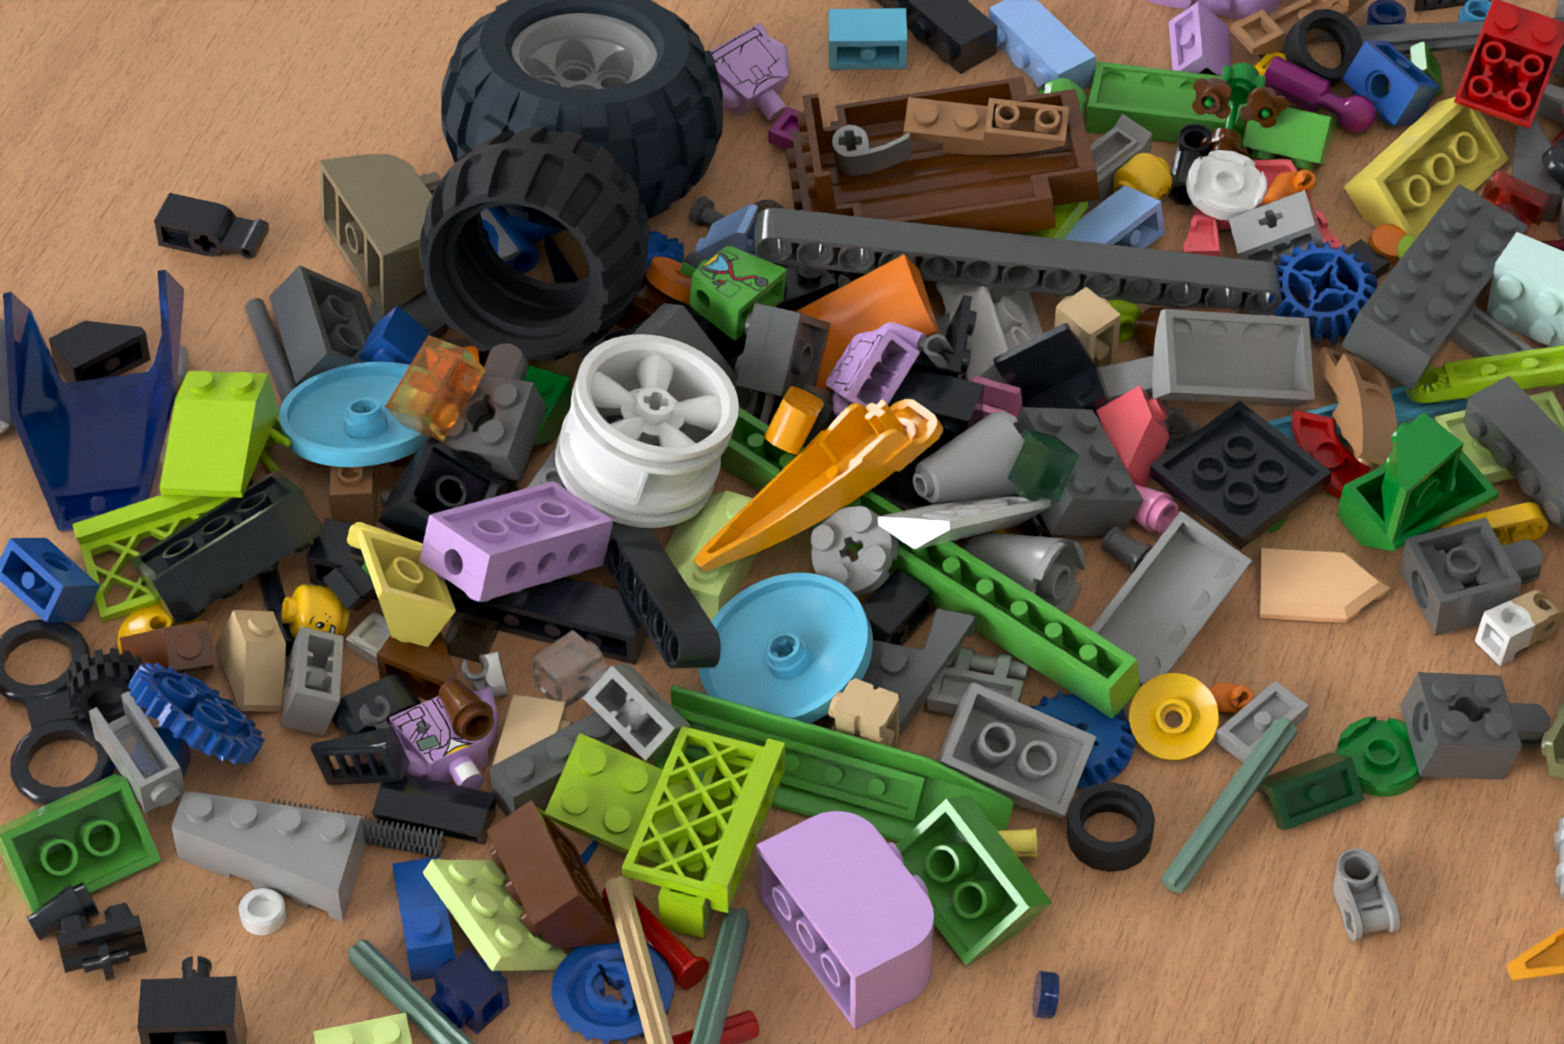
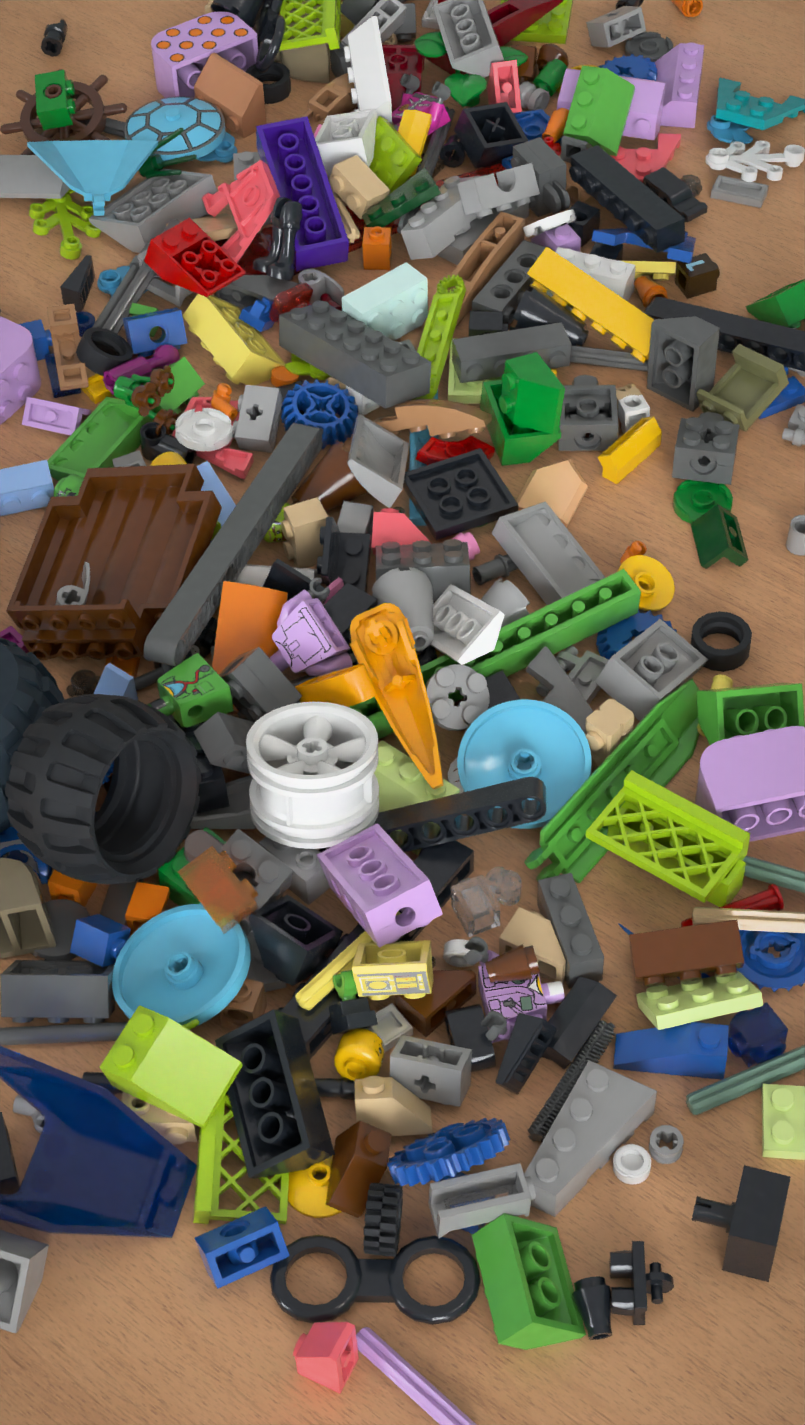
camera: 70 degrees left, 0 degrees up
(294, 924) = (664, 1154): none -> light grey bush
(607, 795) = (622, 898): lime plate -> none
(636, 711) = (558, 857): light grey brick -> none
(994, 129) = (101, 521): medium nougat slope -> none
(1042, 466) = (441, 569): clear green brick -> none
(1229, 805) = (726, 577): sand green axle -> none
(1249, 725) = (662, 544): light grey plate -> none
(1431, 644) = (630, 449): none -> yellow piece
(1478, 171) = (258, 315): none -> blue tile

